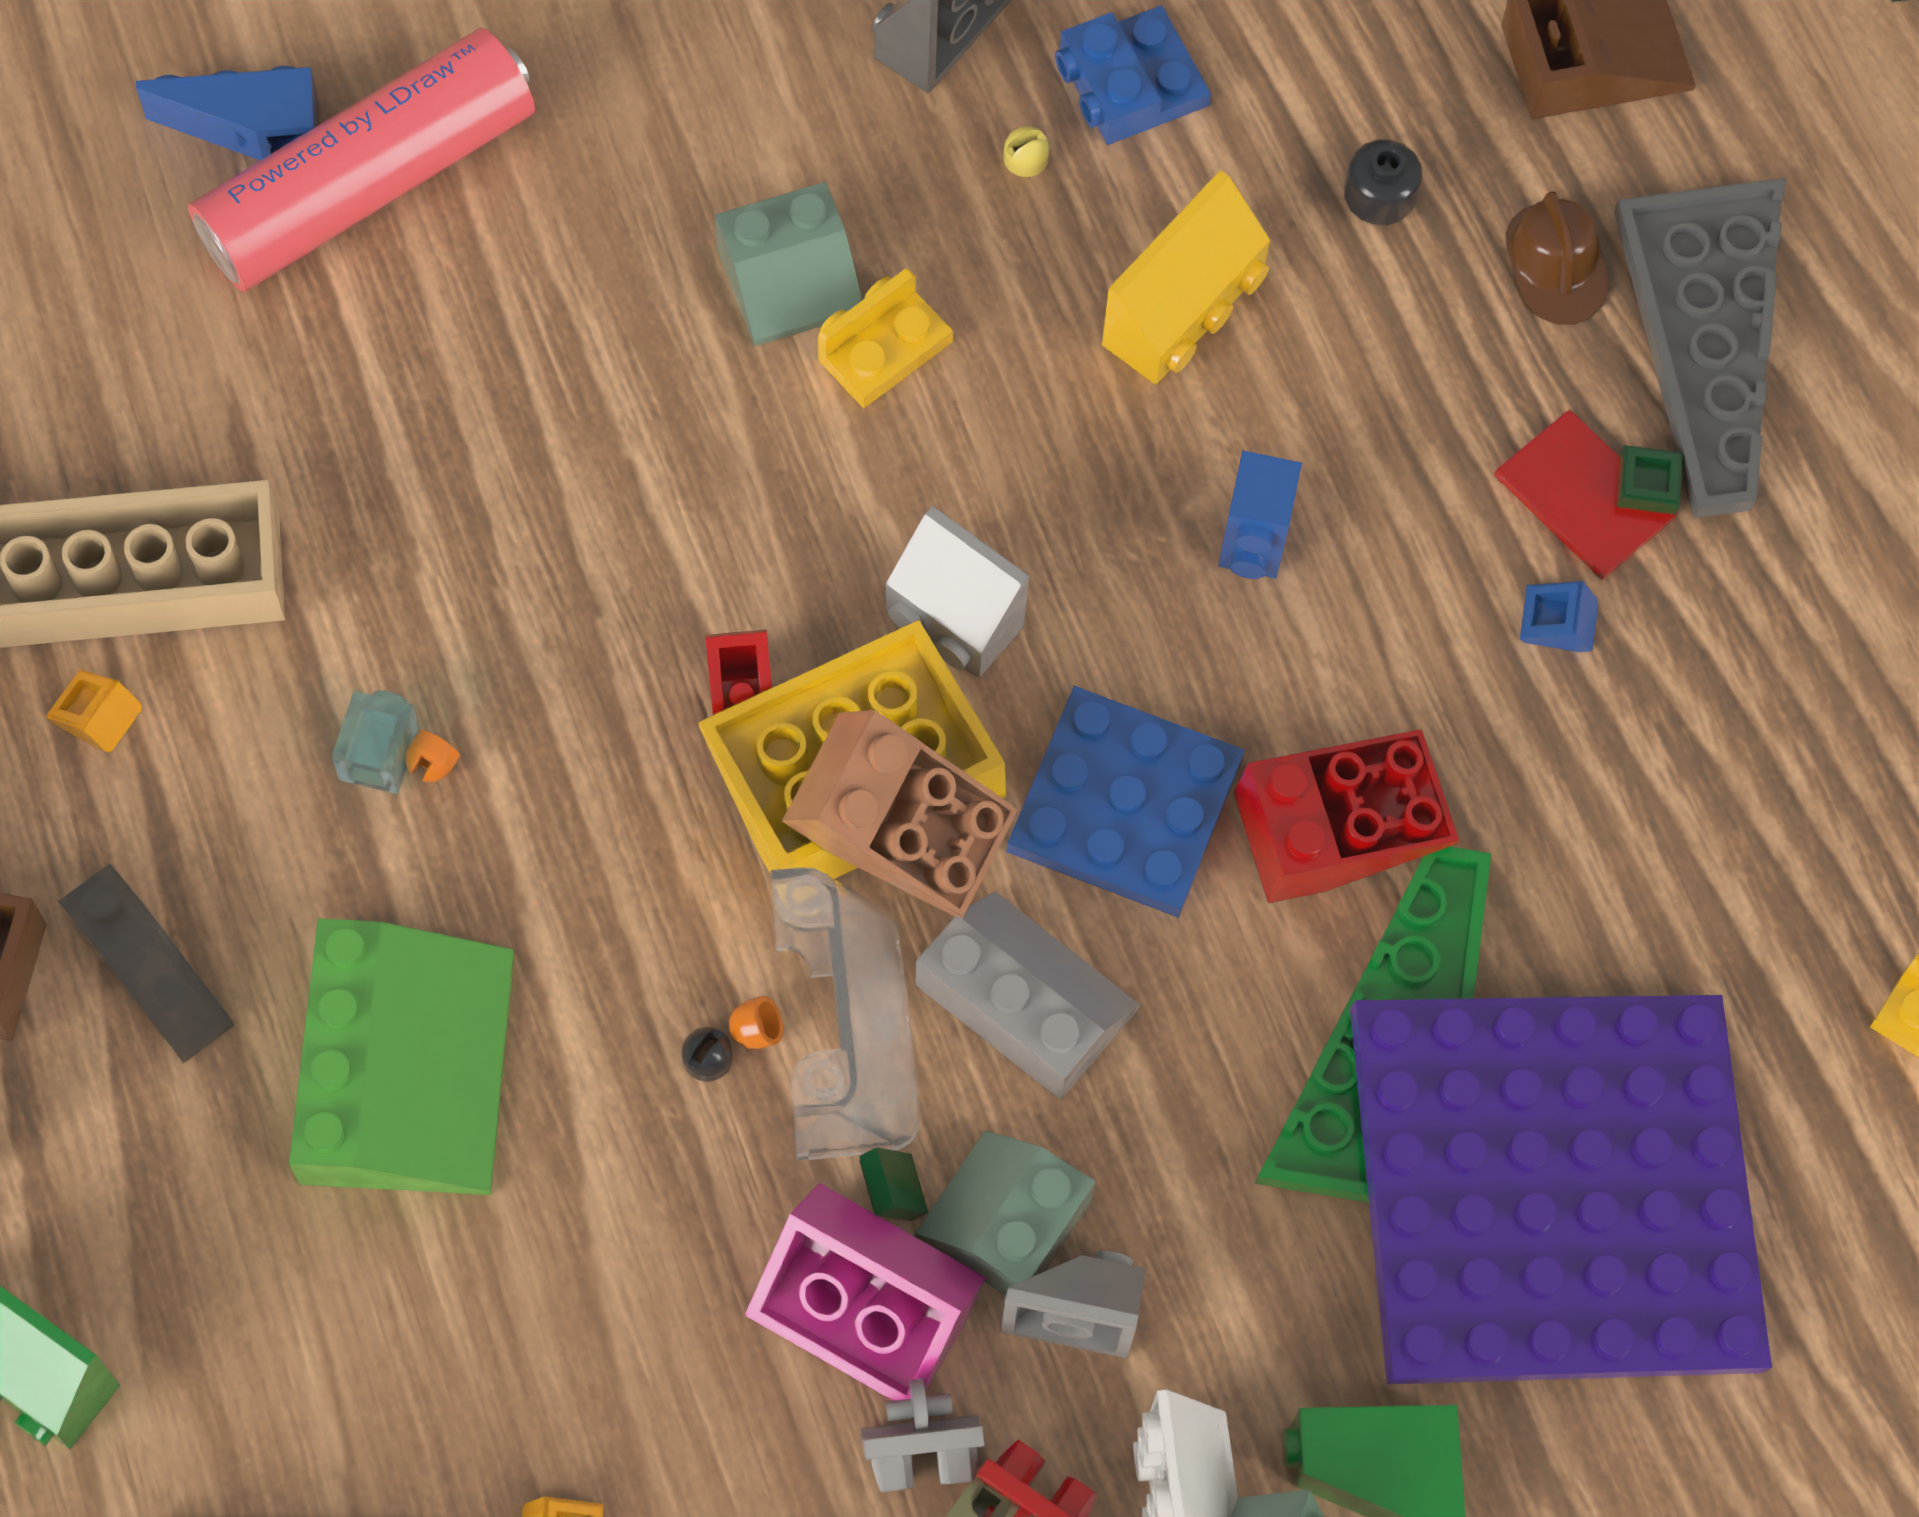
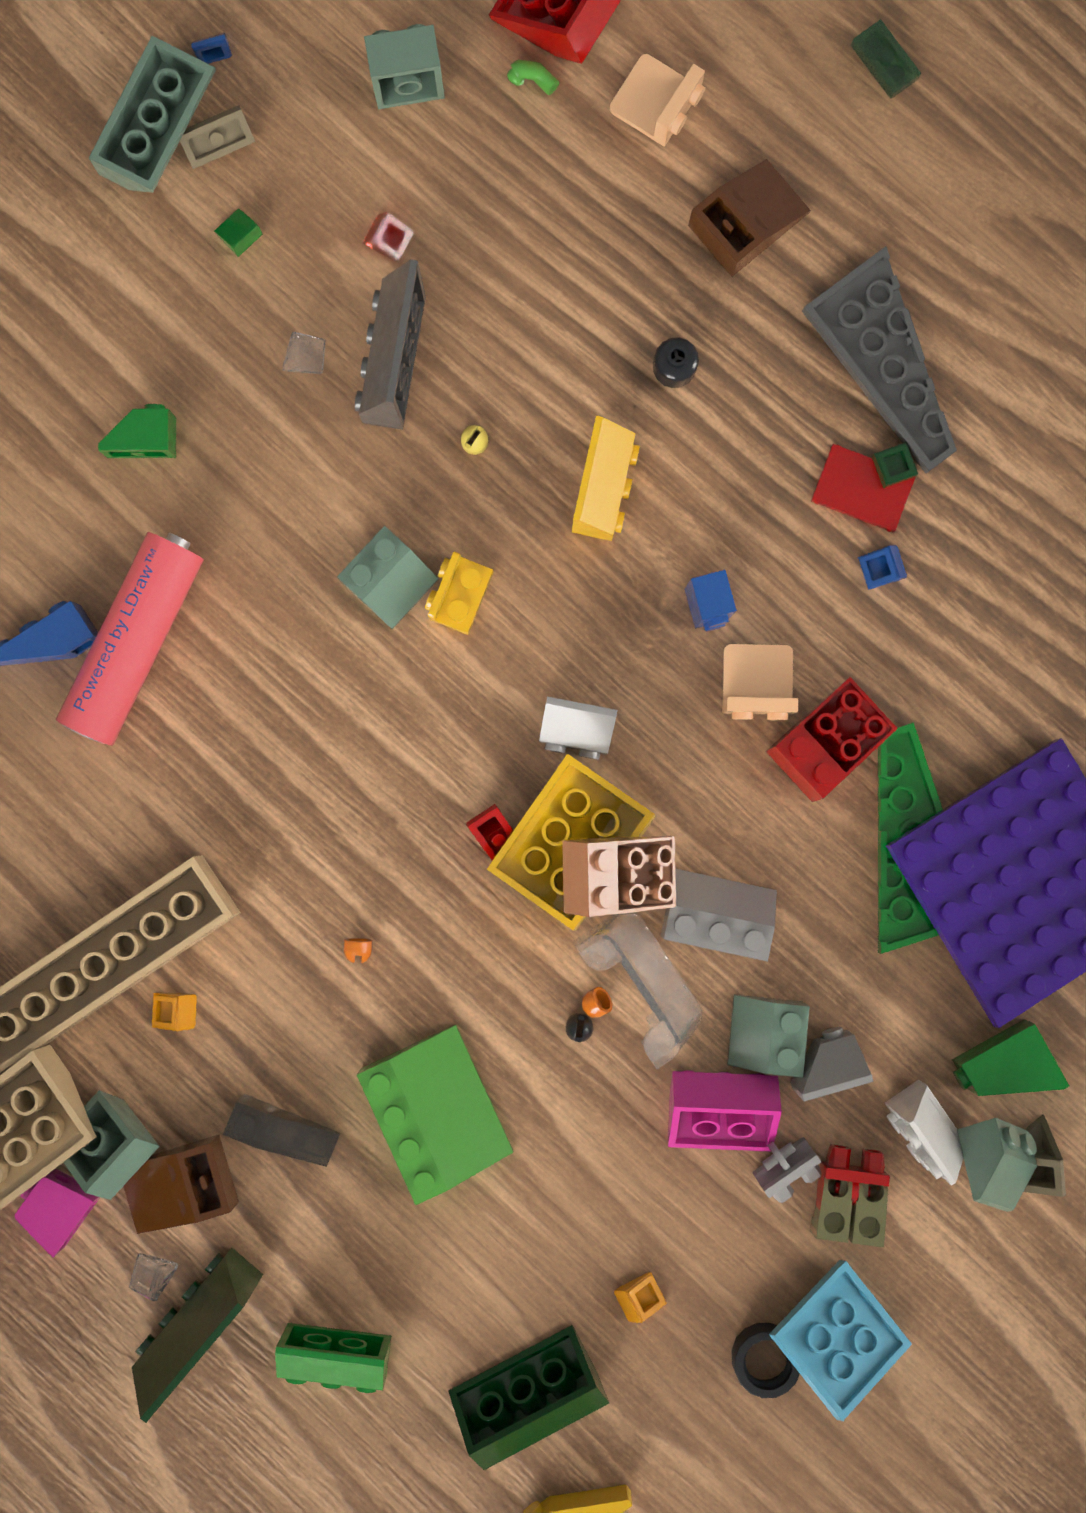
camera: 25 degrees left, 20 degrees up
(375, 740) = (326, 956): clear light blue brick -> none
(893, 1184) = (707, 1050): dark green tile -> none
(1125, 801) = (715, 785): blue plate -> none
(1130, 73) = (506, 362): blue plate -> none
(1274, 678) = (758, 681): none -> light nougat bracket
(1557, 260) = (785, 356): reddish brown piece -> none

